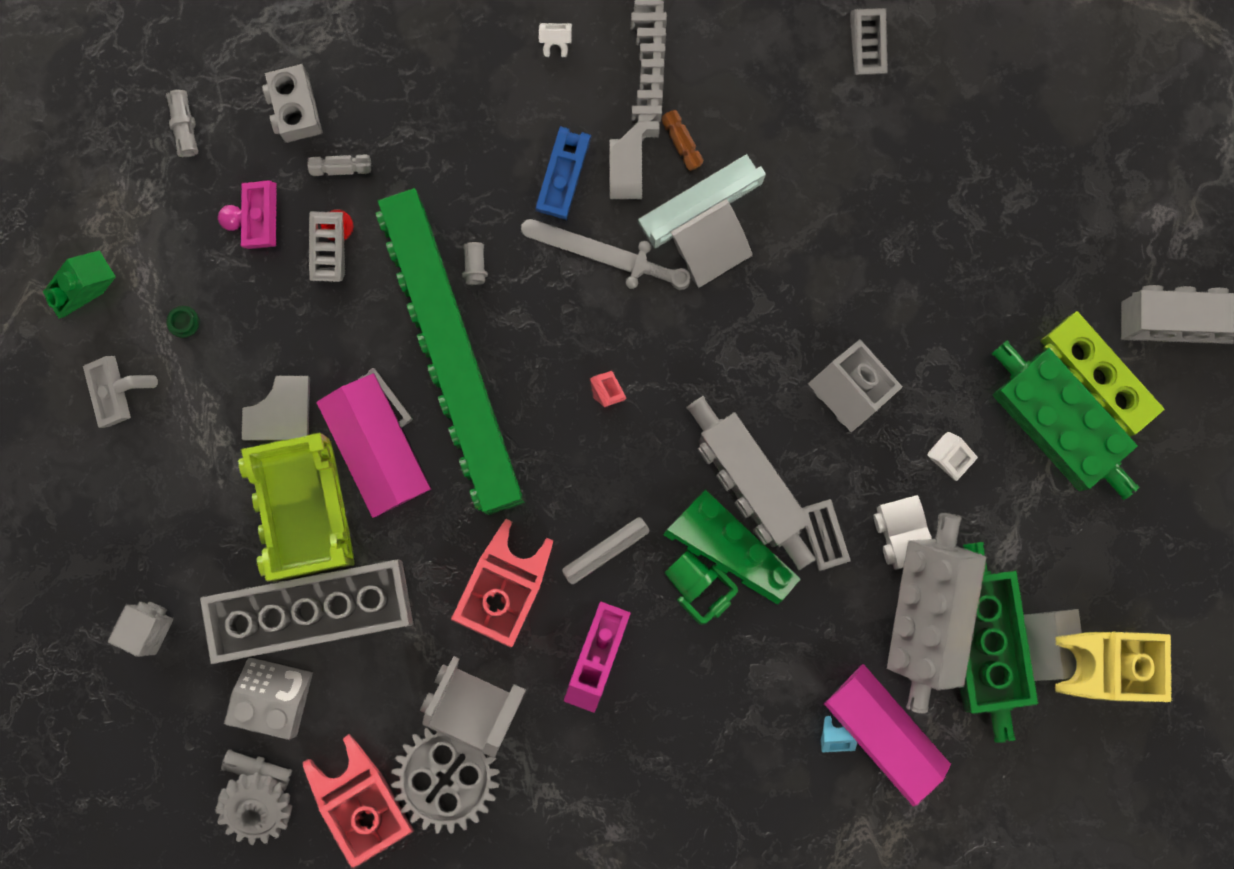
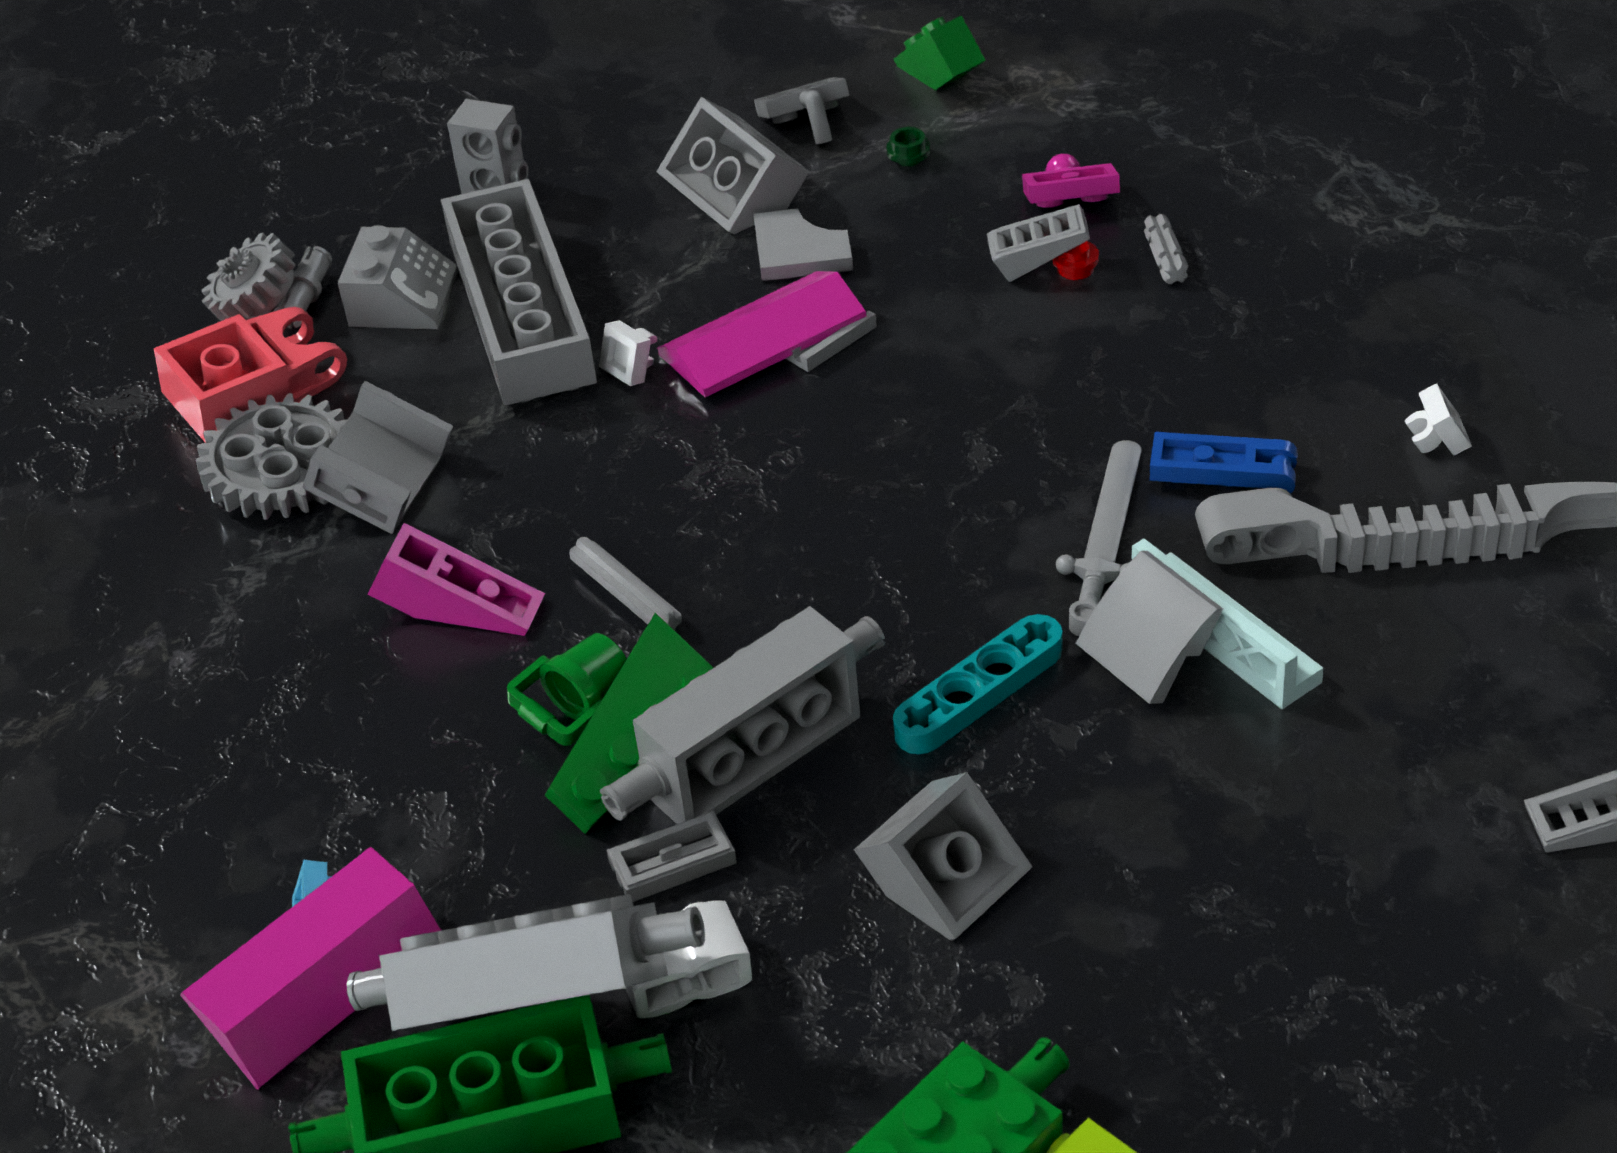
camera: 90 degrees right, 40 degrees down
(182, 123) = (1205, 103): light grey pin -> none
(185, 451) = (730, 168): none -> light grey slope
(297, 102) = (1240, 190): light grey brick -> none
(298, 507) = (666, 268): lime windscreen -> none
(384, 537) = (626, 352): none -> white tile
(451, 353) = (899, 364): green brick -> none
(474, 263) = (1052, 390): light grey pin -> none
(506, 576) = (557, 467): coral brick -> none
(607, 389) = (883, 551): coral slope -> none
(682, 140) = (1322, 591): dark orange axle -> none
(725, 345) = (972, 677): none -> teal beam
(952, 455) = (834, 1028): white slope -> none

